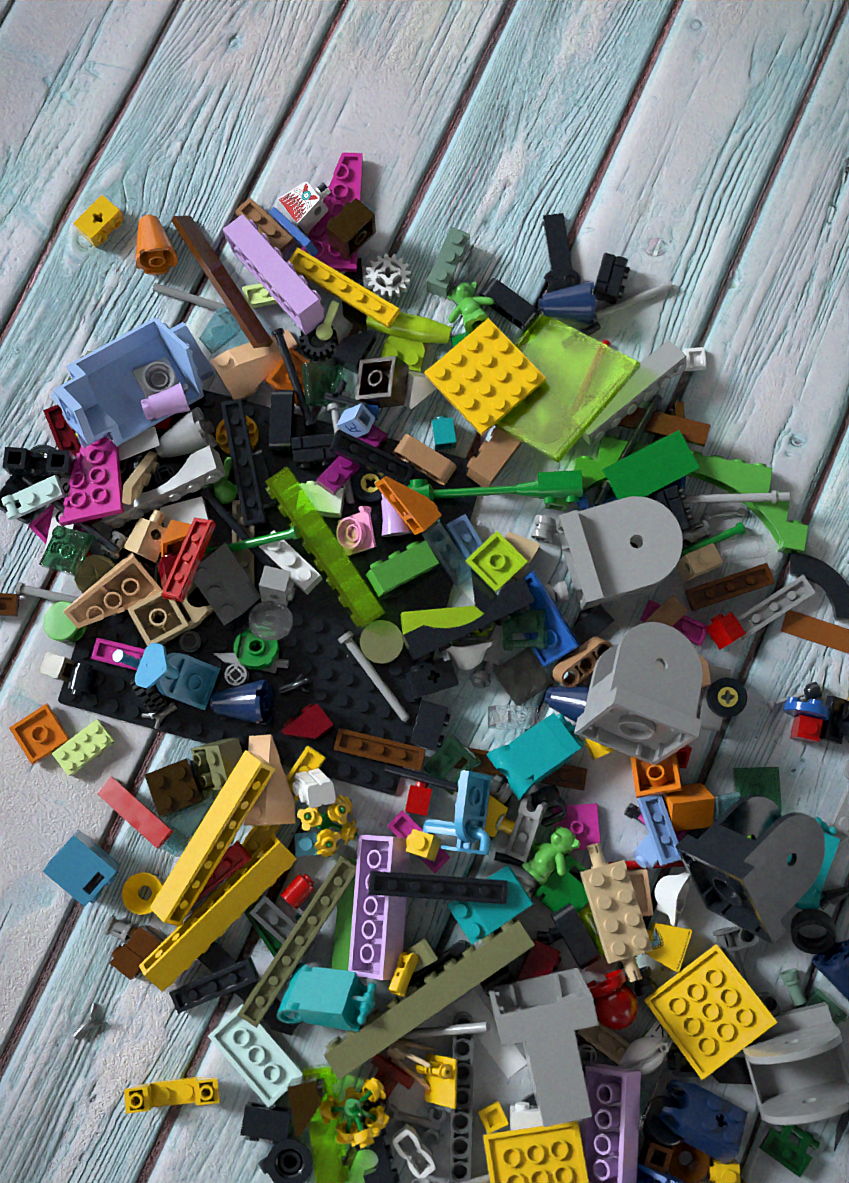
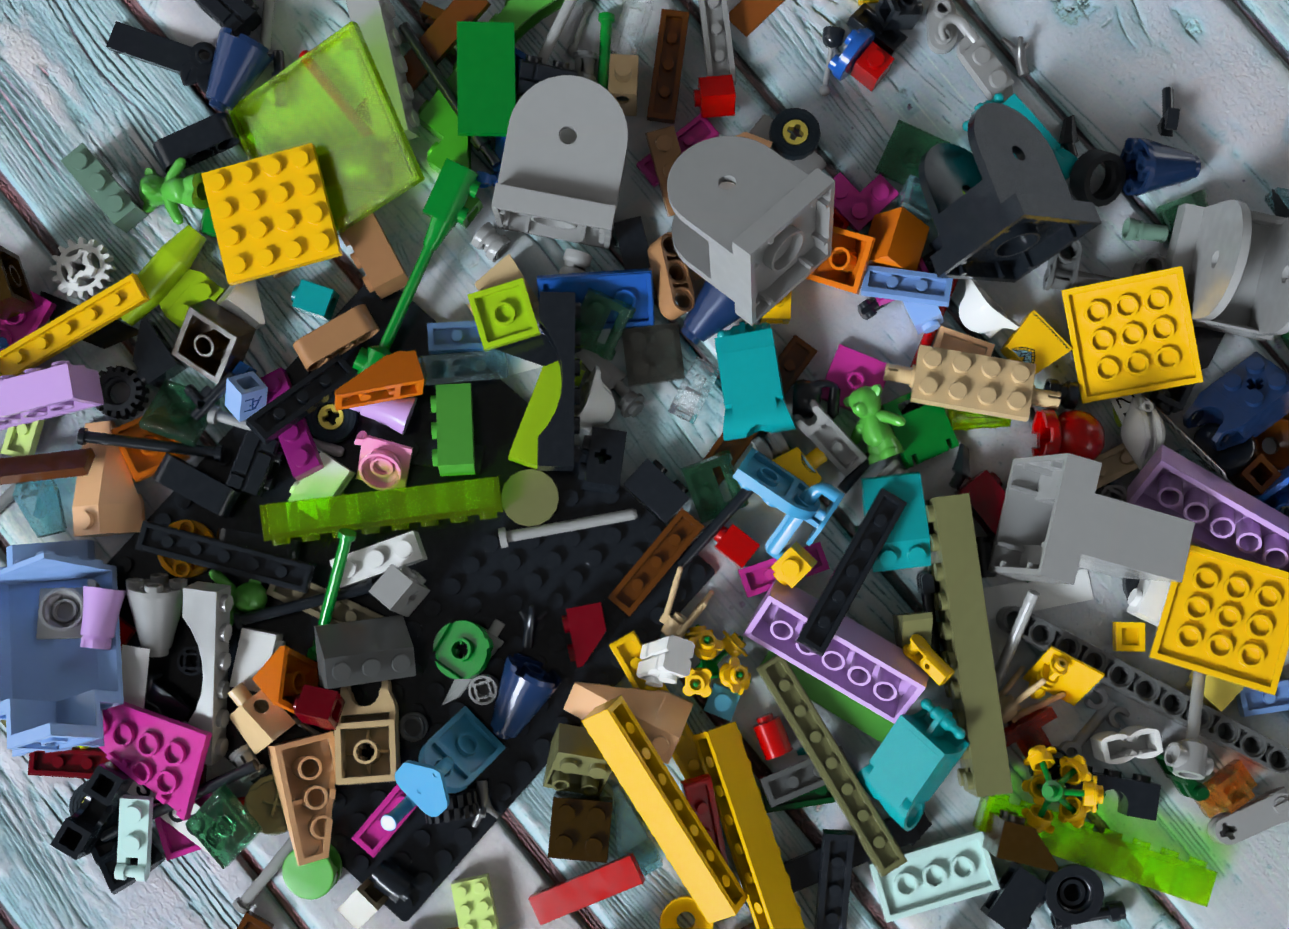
camera: 65 degrees left, 5 degrees up
(139, 478) = (179, 693): tan plate -> none
(188, 559) = (314, 680): red tile -> none
(270, 620) = (438, 617): clear tile -> none
(324, 331) = (110, 379): yellowish green bar -> none
(344, 786) = (678, 623): none -> tan plant
(575, 936) = (977, 443): black beam -> none
(701, 768) = (861, 206): none -> dark pink plate

